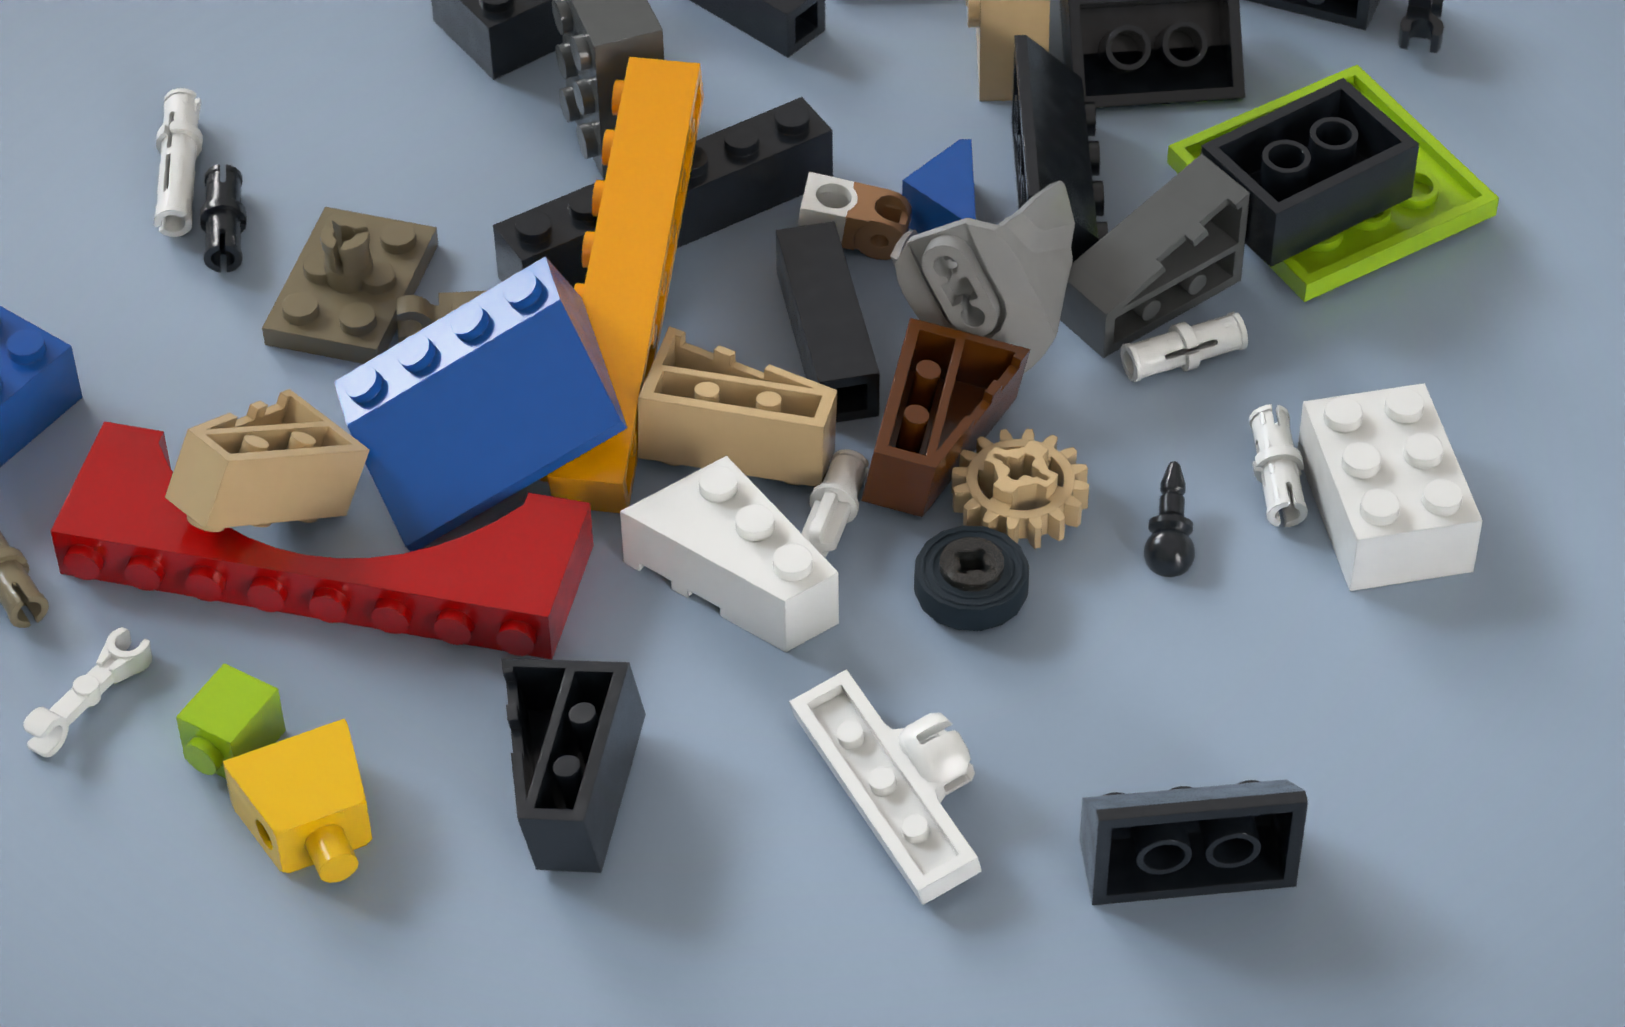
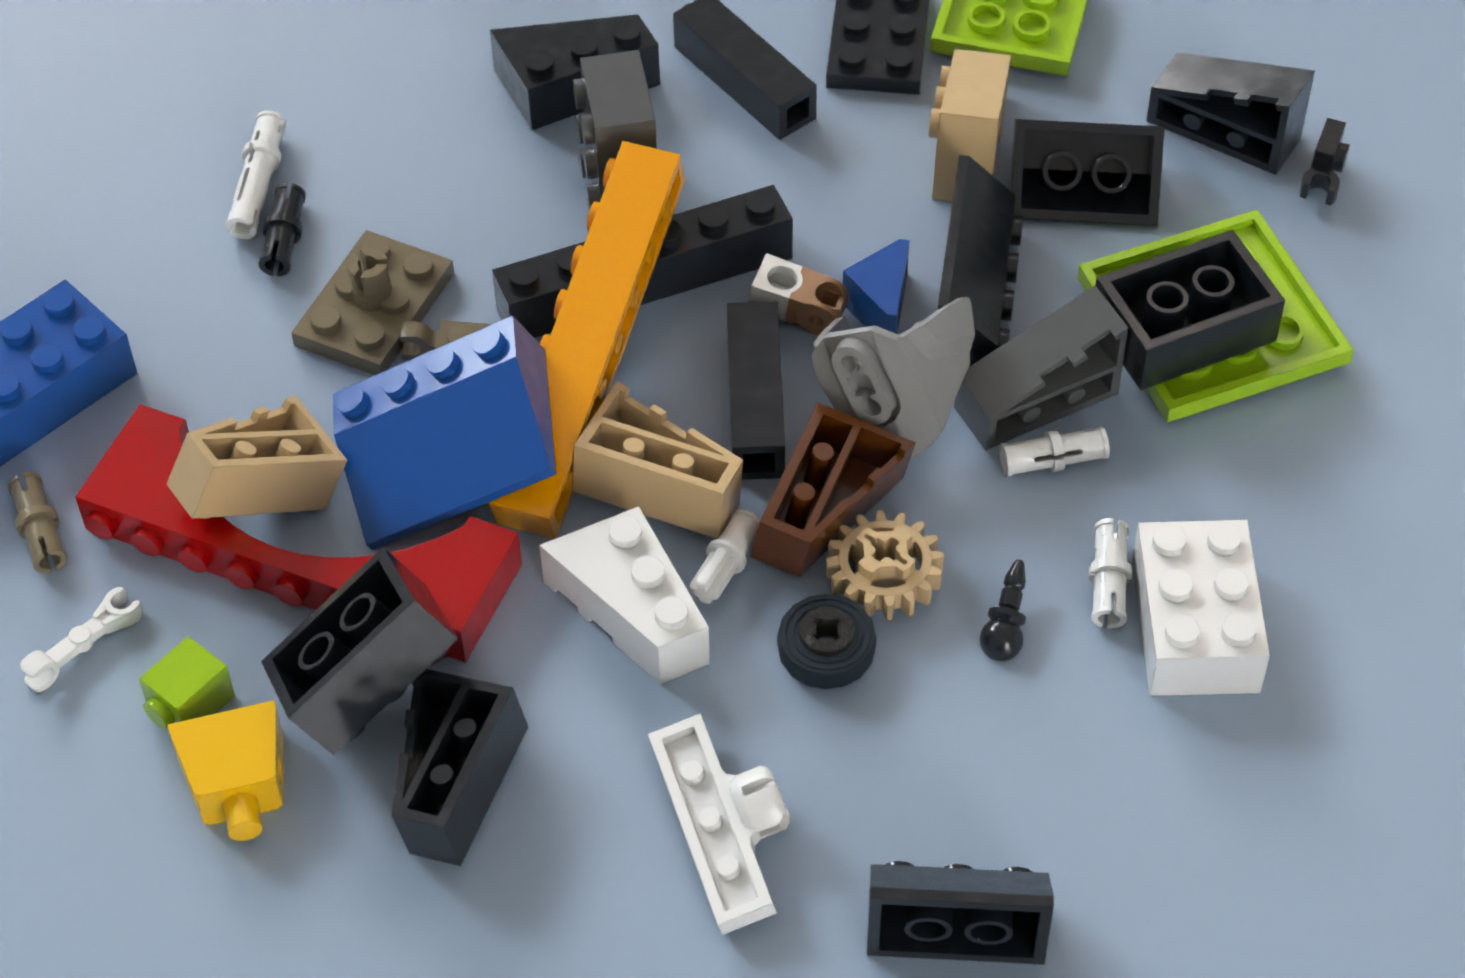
camera: 10 degrees right, 5 degrees up
(438, 647) = (358, 651): none -> black brick

